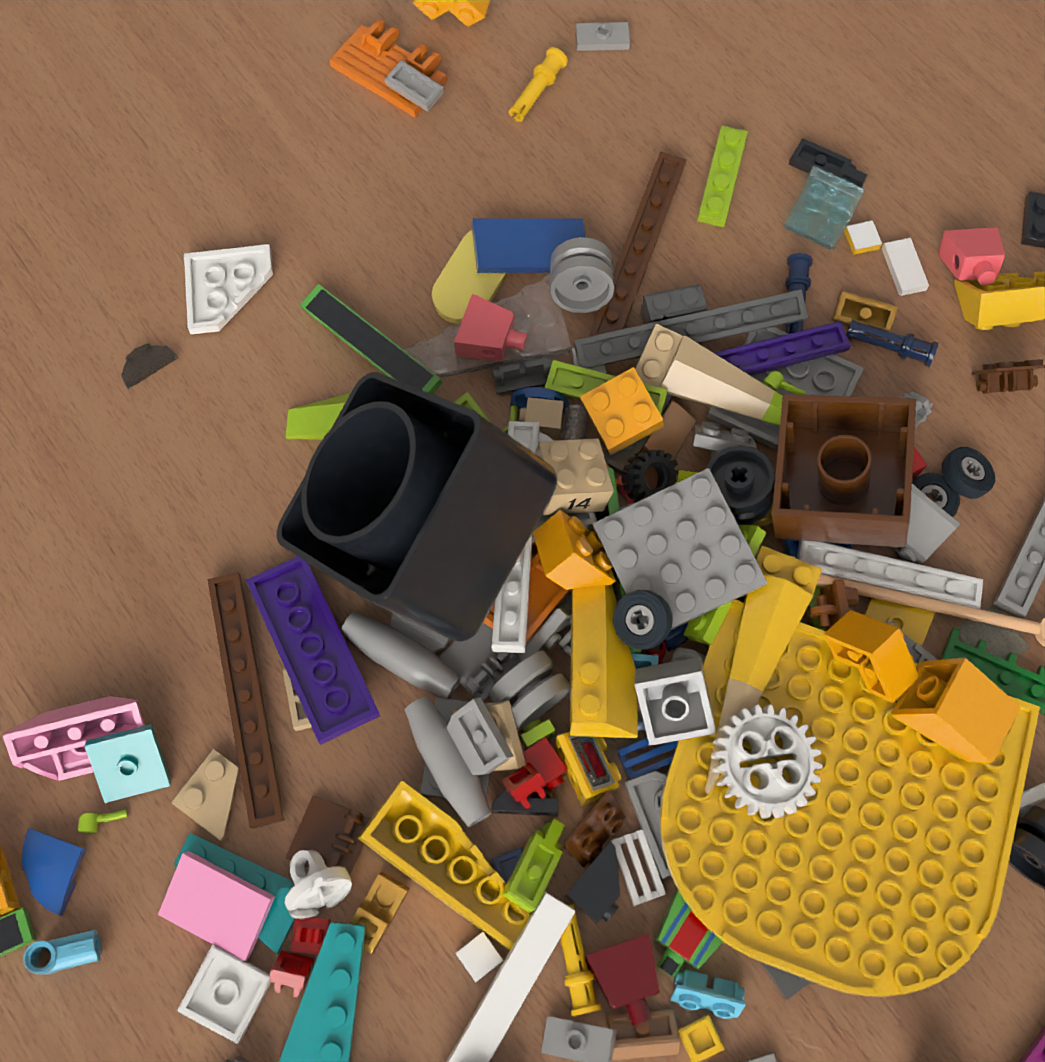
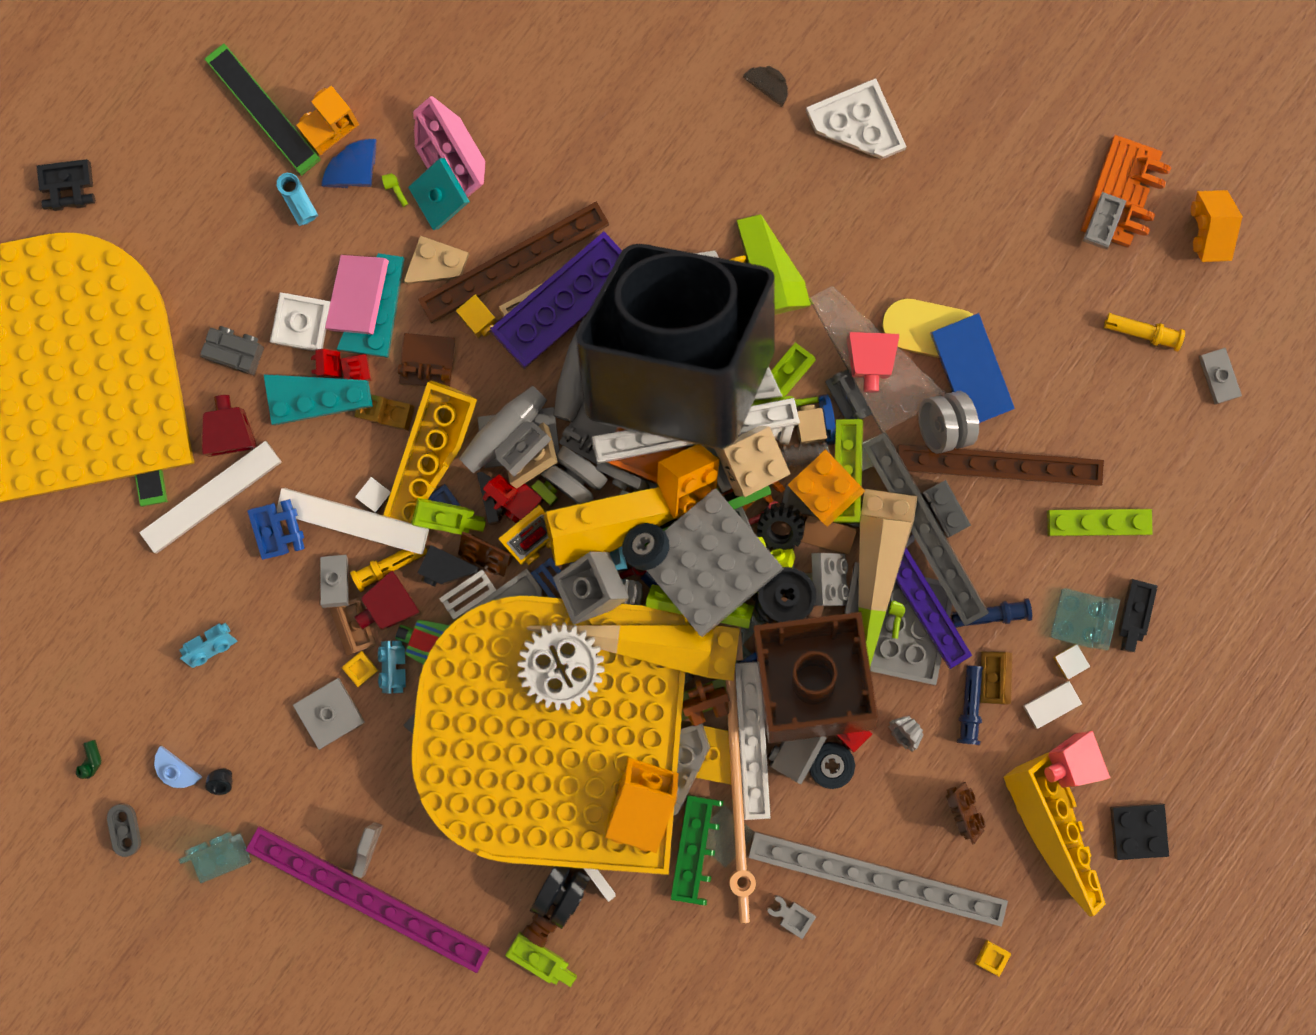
camera: 70 degrees right, 15 degrees up
(296, 758) = (477, 316): none -> yellow brick
(317, 888) = (388, 361): white tile -> none
(368, 341) = (836, 262): black tile -> none
(876, 651) = (669, 732): light orange brick -> none
(968, 472) = (851, 794): black bush -> none

